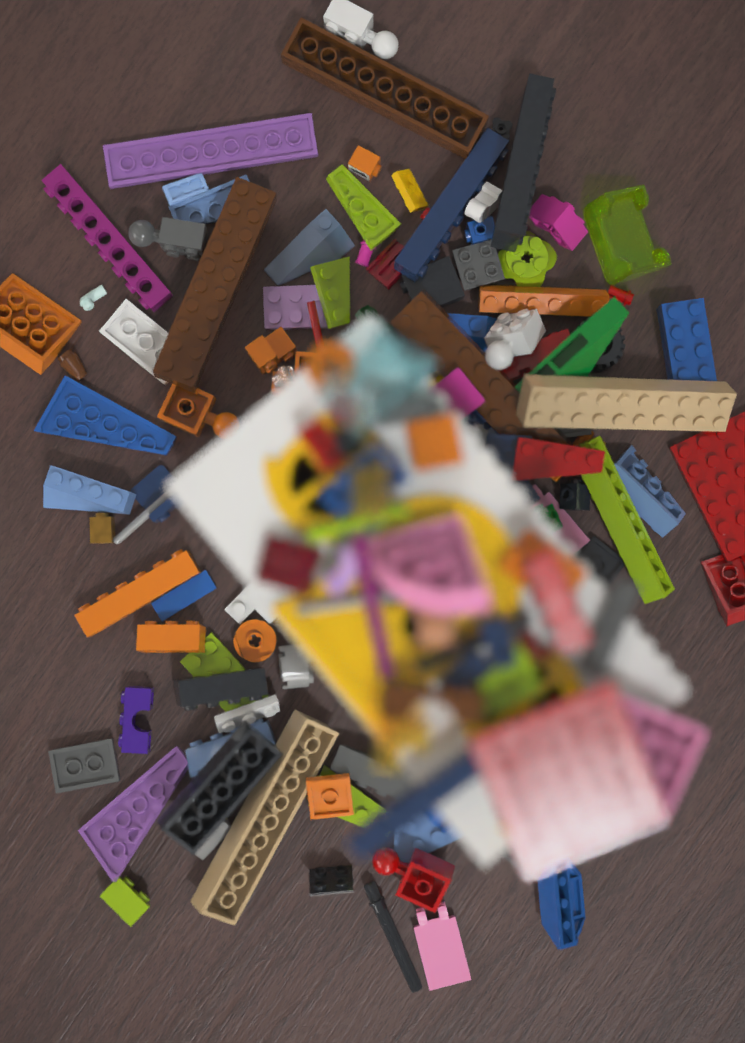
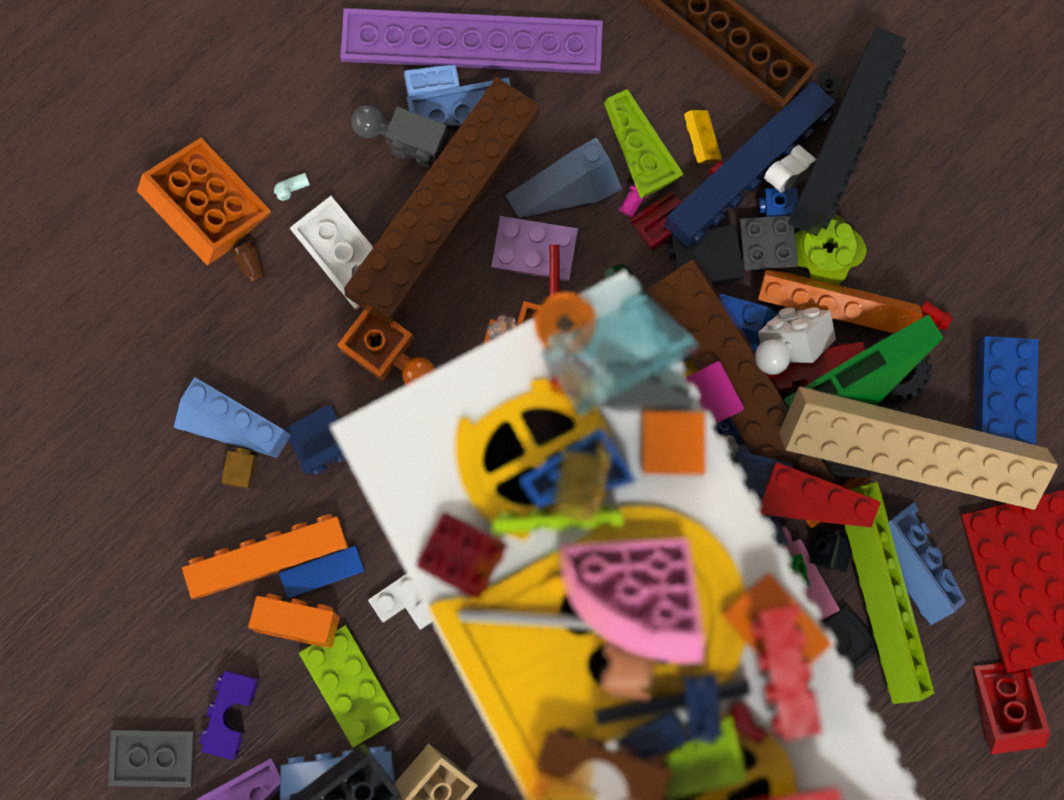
camera: 15 degrees right, 5 degrees down
(61, 179) = (285, 38): magenta brick -> none
(90, 417) = (256, 329): blue wing -> none
(140, 519) = (291, 465): light grey piece -> none
(220, 687) = (342, 696): black wedge -> none
(251, 712) = (373, 735): white plate -> none
(266, 645) = (386, 636): orange plate -> none
(271, 350) = (493, 294): orange brick -> none
(294, 667) = (439, 690): light grey brick -> none
(321, 446) = (534, 418): red hinge -> none
(333, 289) = (585, 237): lime wing -> none
(345, 574) = (530, 581): lavender leg -> none
(347, 442) = (565, 420): black tile -> none
(364, 163) = (654, 93): orange brick -> none
(373, 606) = (555, 631): magenta axle -> none
(558, 220) = (877, 209): dark pink brick -> none
(608, 627) = (845, 720): dark grey plate -> none
(622, 235) = (952, 243): clear neon green windscreen -> none

